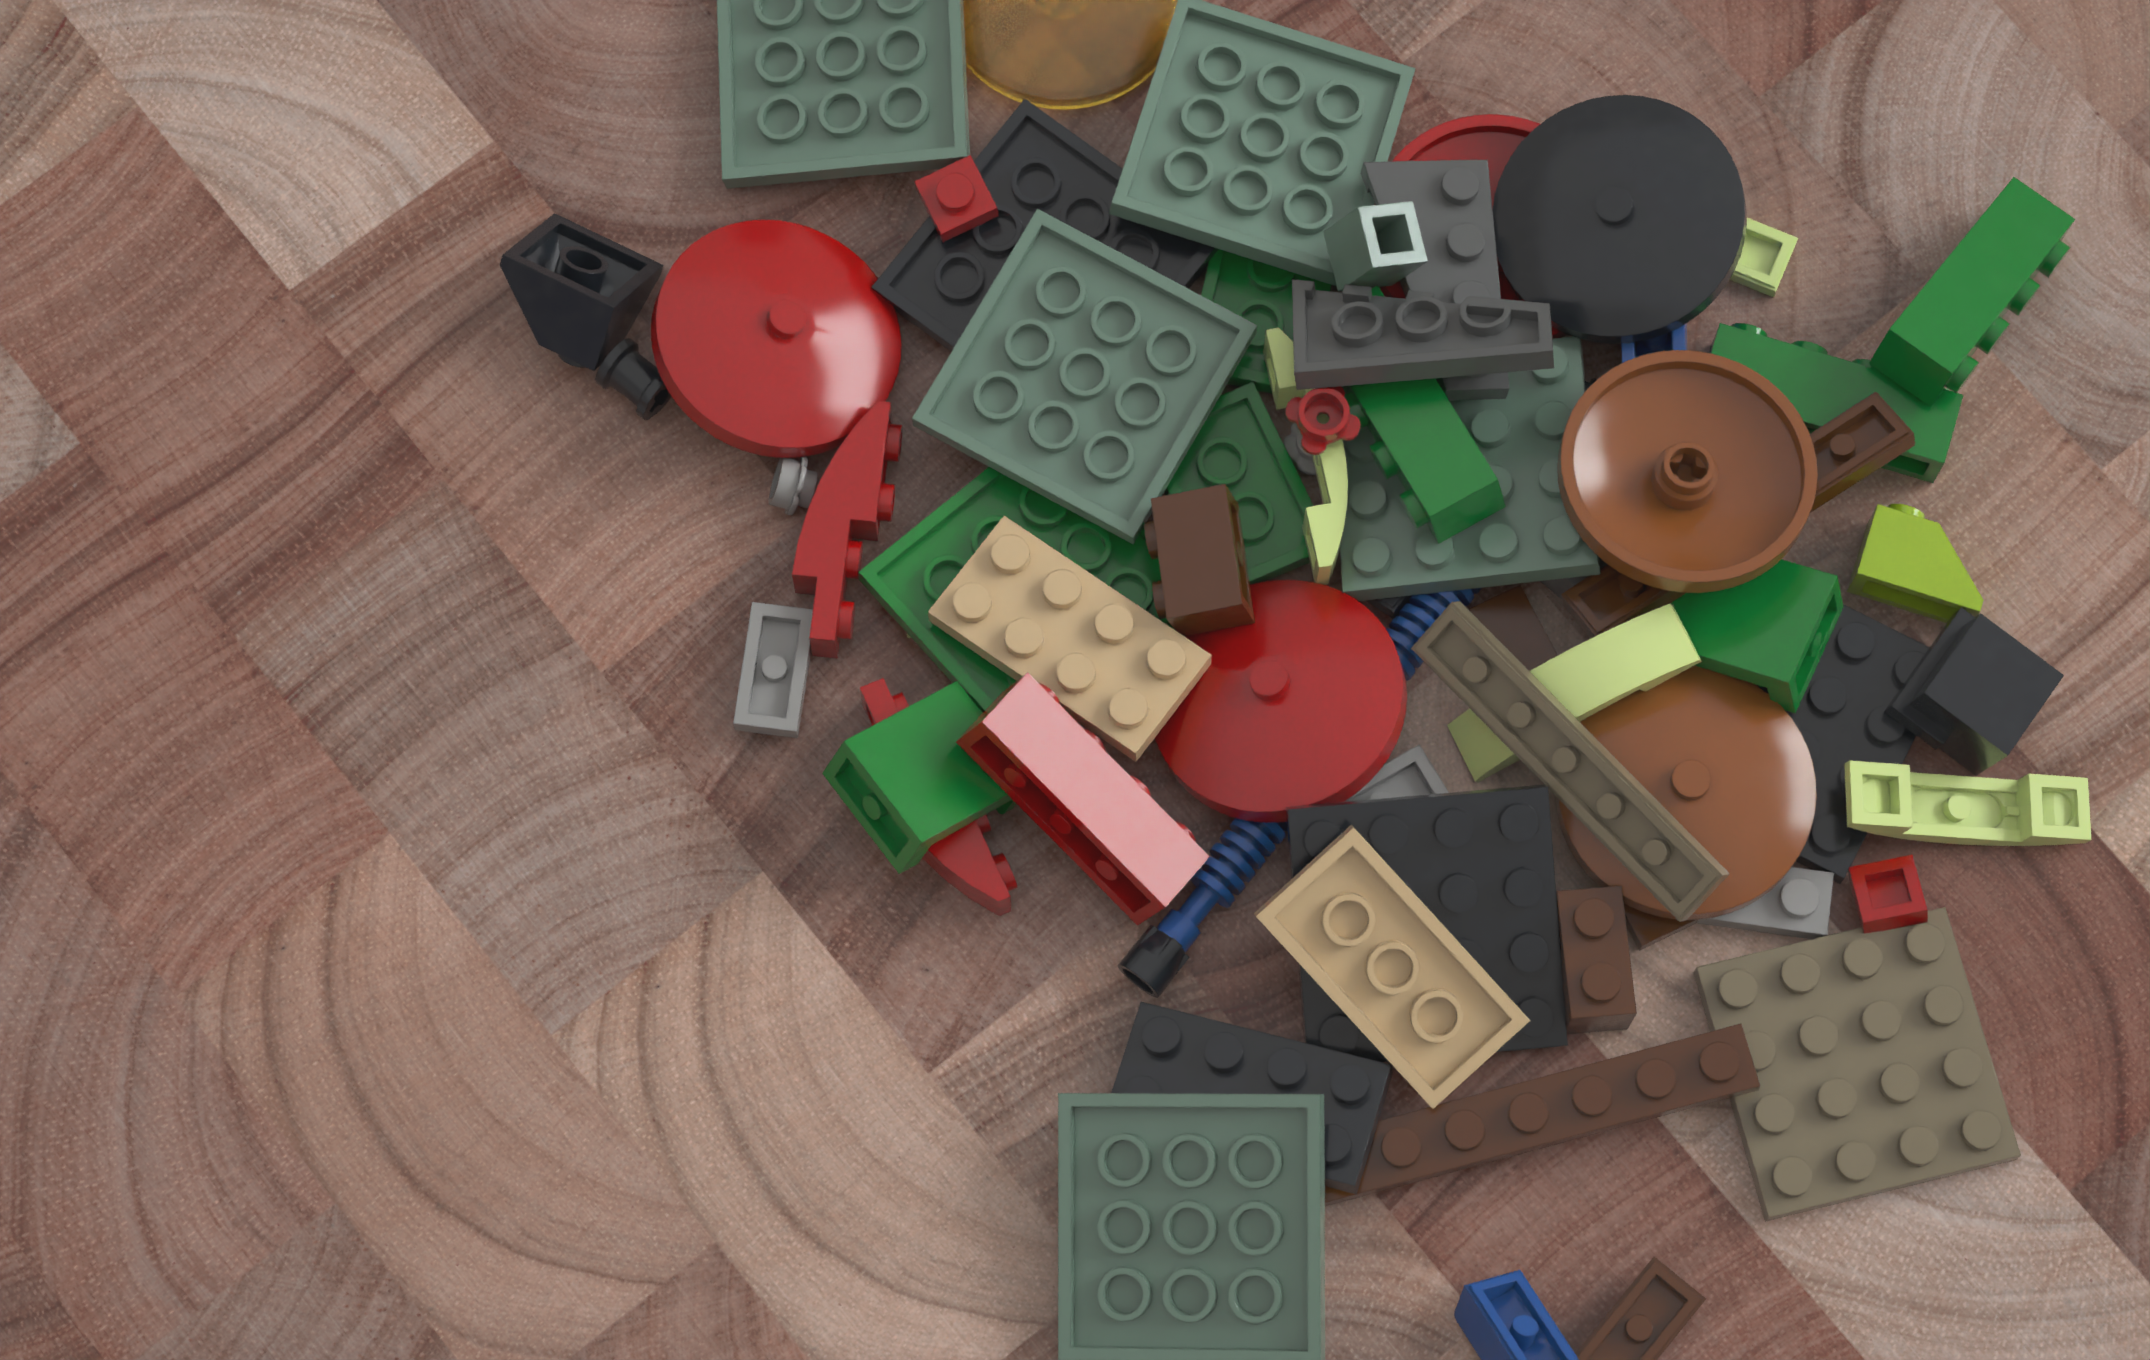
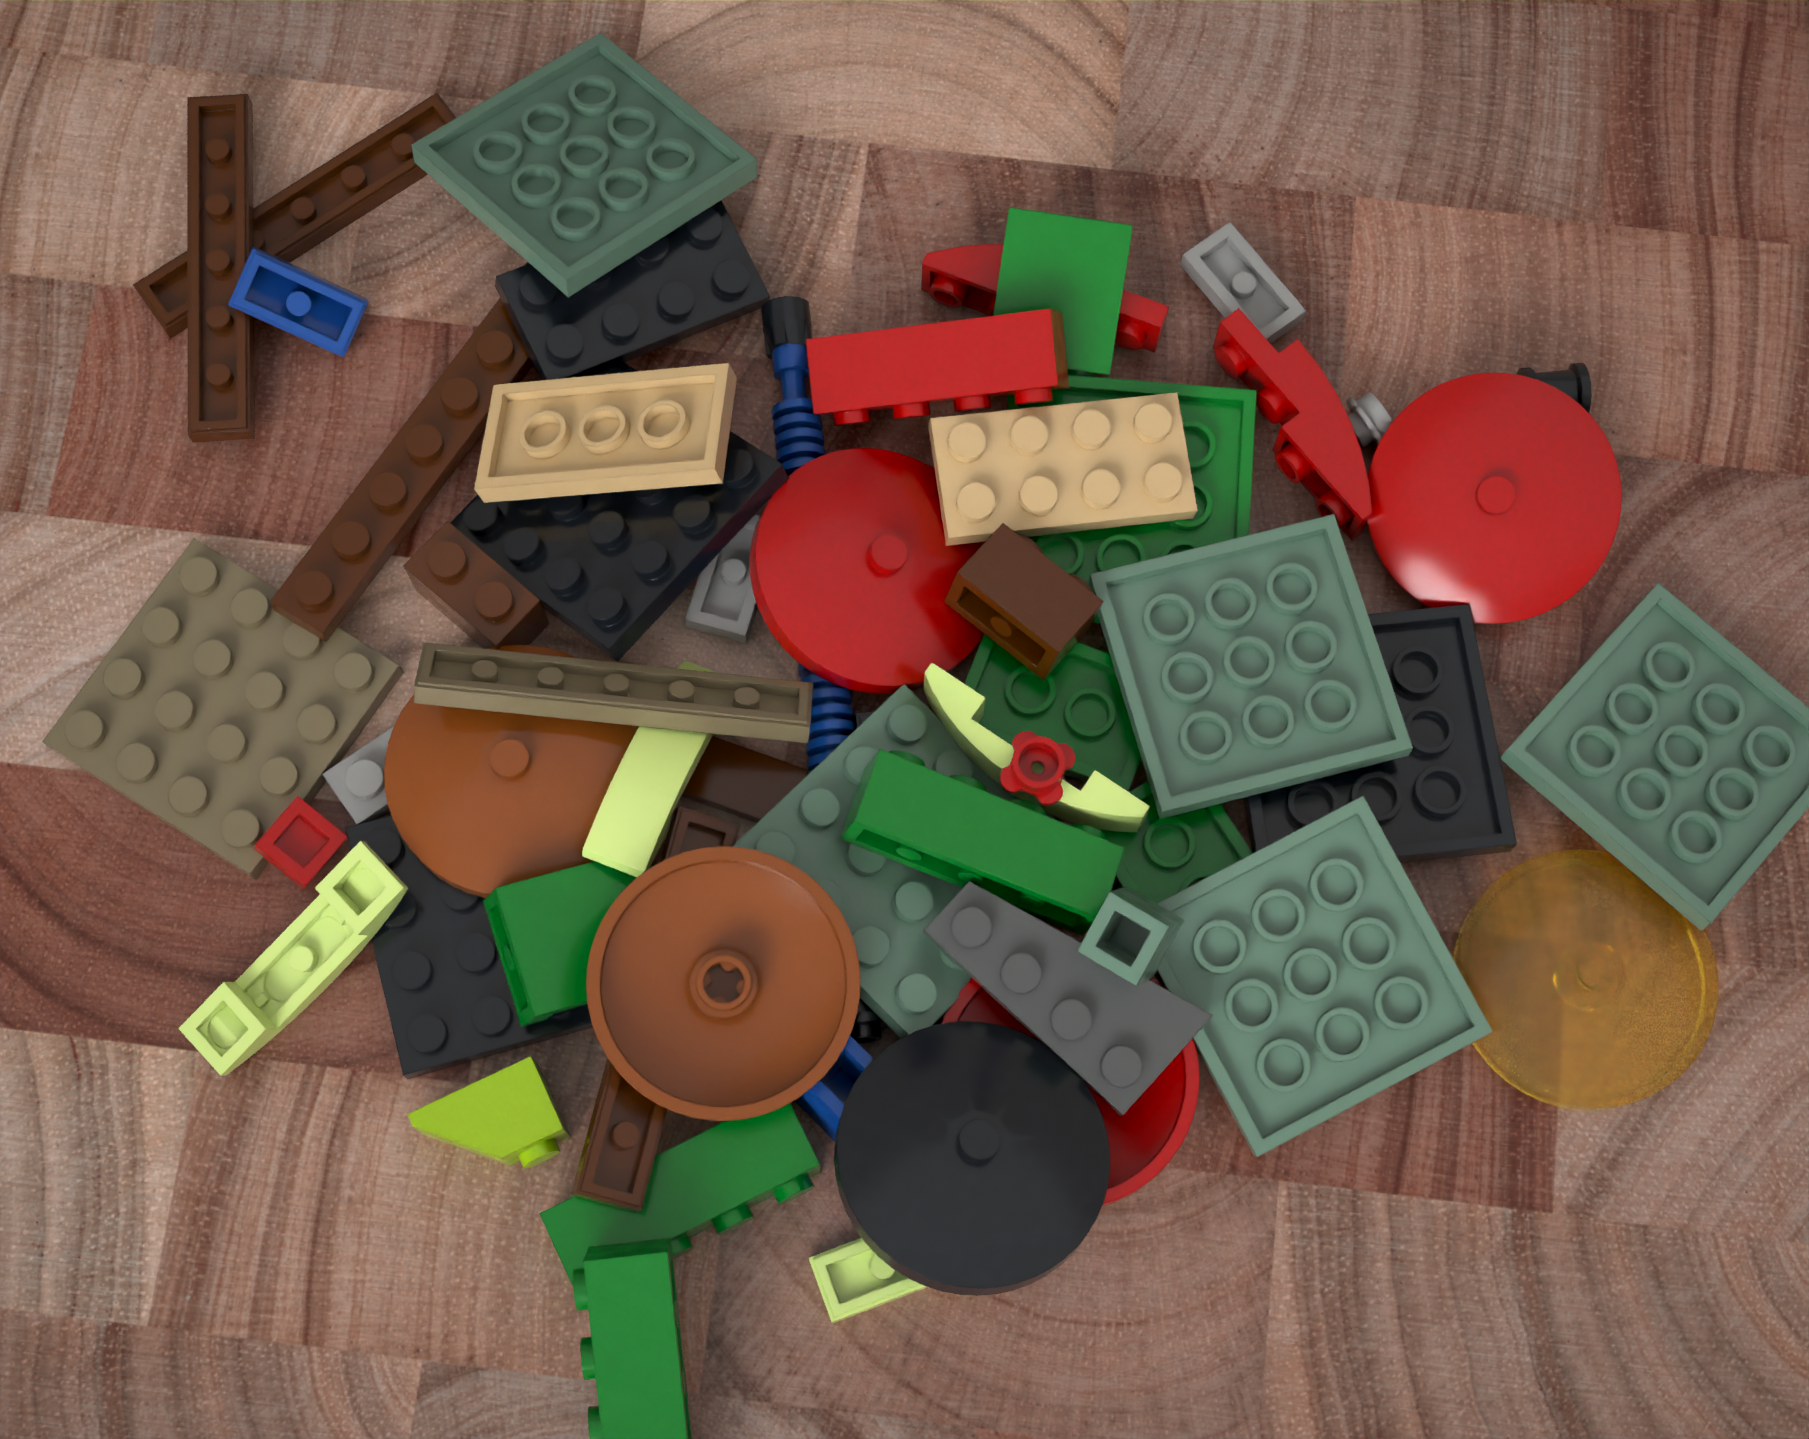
camera: 135 degrees right, 0 degrees up
(578, 289) = (1667, 412): black slope -> none
(956, 198) = (1480, 715): red plate -> none
(1389, 339) = (1042, 869): dark grey wing -> none
(1974, 692) = (357, 1046): black plate -> none

